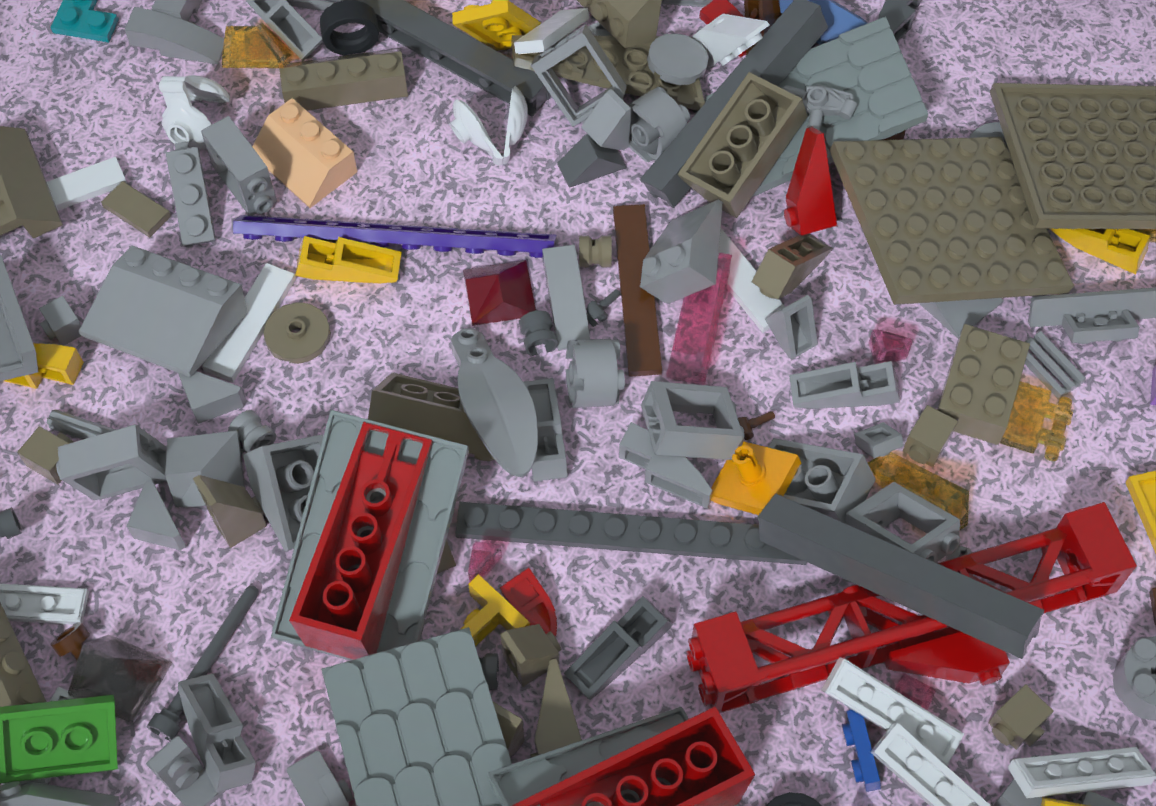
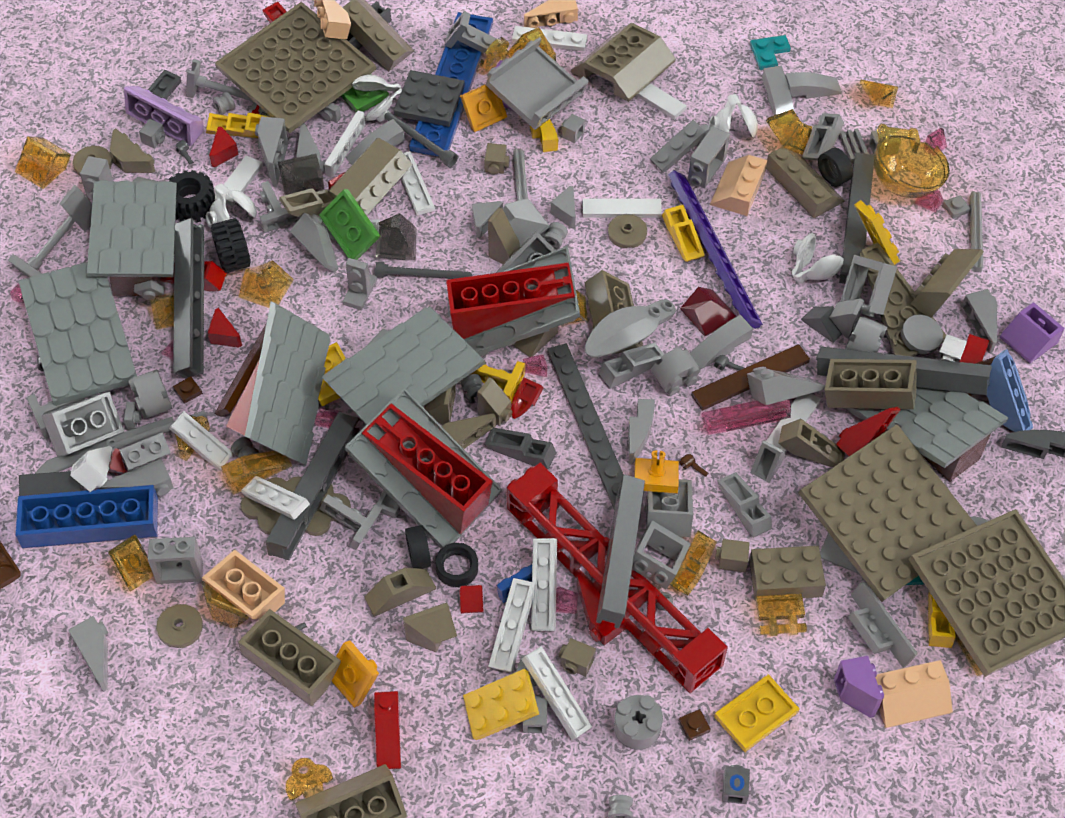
camera: 65 degrees right, 5 degrees down
(71, 640) = (405, 212): reddish brown tile -> none
(112, 462) = (500, 179): light grey window -> none
(136, 209) = (660, 129): dark tan tile -> none
(163, 311) = (600, 165): light grey slope -> none
(216, 733) = (386, 290): light grey slope -> none
(537, 329) = (691, 337): dark grey wheel -> none
(551, 31) = (890, 257): white tile -> none
(595, 251) = (760, 345): dark tan wheel -> none
(691, 441) = (658, 434): light grey window -> none
(824, 101) = (924, 408): light grey piece -> none
(879, 440) = (717, 531): light grey plate -> none
(888, 346) = (784, 516): clear pink slope -> none
(1077, 377) = (835, 597): light grey tile -> none

